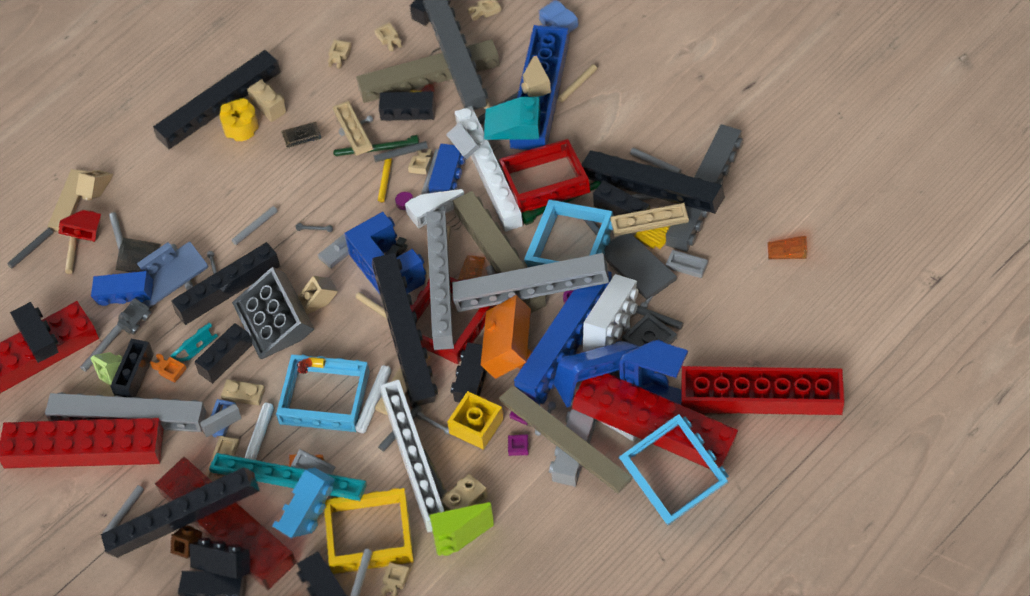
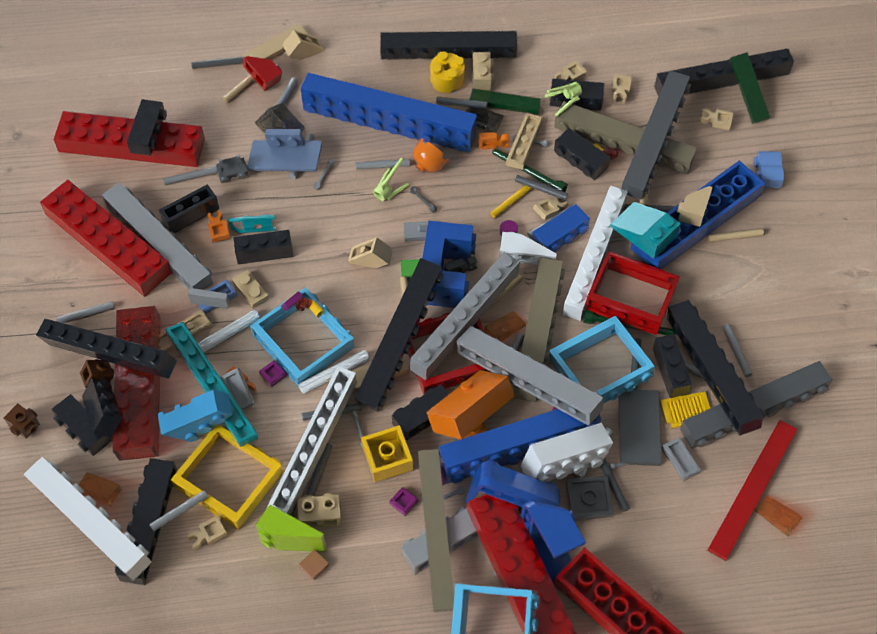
camera: 35 degrees right, 5 degrees up
(106, 366) = (175, 189): yellowish green slope -> none
(121, 288) = (242, 141): blue brick -> none
(223, 181) = (388, 112): none -> blue brick
(225, 283) = (317, 193): black brick -> none
(272, 314) = (327, 244): dark grey slope -> none
(273, 134) = (462, 102): none -> dark grey bar
(276, 241) = (383, 189): none -> yellowish green plant
(290, 191) = (428, 157): none -> orange cylinder
(293, 370) = (291, 301): none -> magenta tile
(306, 110) = (507, 101): none -> dark green tile
(325, 146) = (491, 140): none -> orange plate
(326, 437) = (273, 373): none -> magenta tile
(356, 64) = (570, 91): none -> yellowish green plant
(357, 283) = (408, 267): none -> bright green tile
(358, 63) = (590, 98): none -> black brick
(463, 140) = (592, 214): light grey tile -> none
(496, 538) = (314, 564): none -> nougat tile
(649, 219) = (679, 397): tan tile -> none
(754, 246) = (752, 490): none -> red tile

